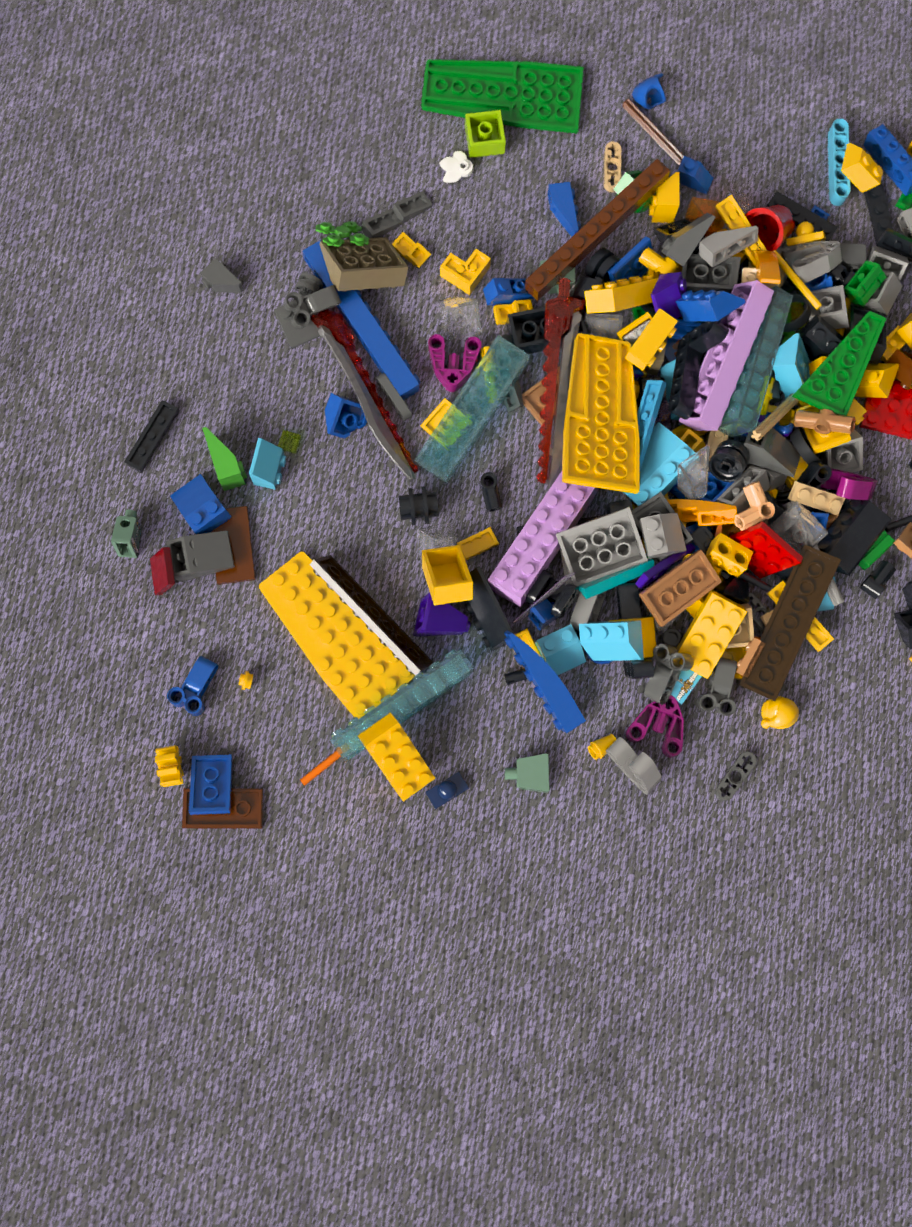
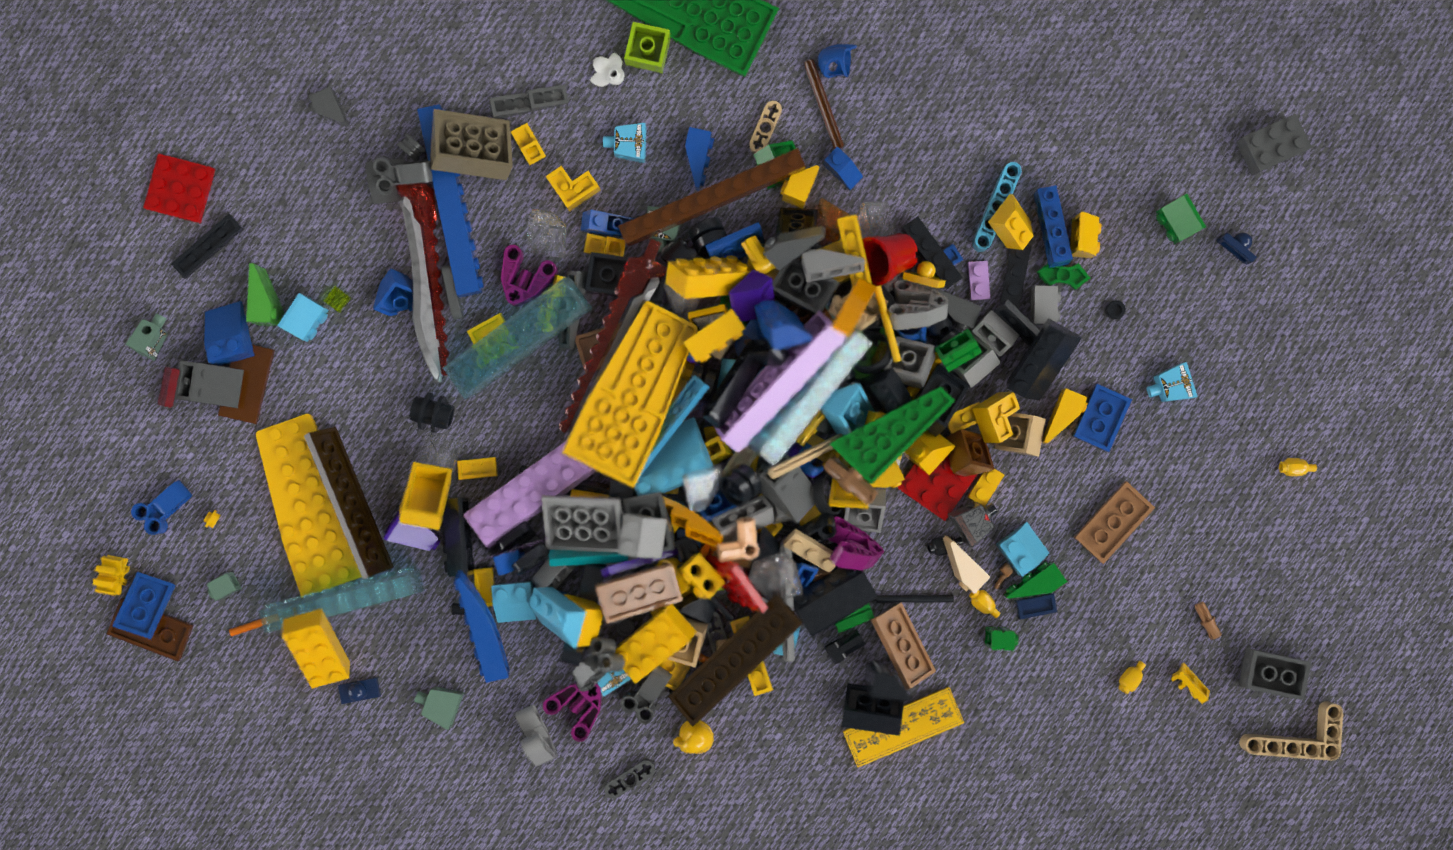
camera: 25 degrees right, 10 degrees up
(106, 396) = (179, 188): none -> red plate
(280, 739) = (223, 586): none -> sand green brick
(342, 231) = (463, 104): bright green plant -> none
(490, 493) = (508, 425): black piece -> none
(500, 217) = (628, 142): none -> medium azure torso
(598, 747) = (515, 704): yellow cone -> none
(747, 663) = (681, 681): medium nougat plate -> none
(850, 227) = (978, 280): none -> lavender plate

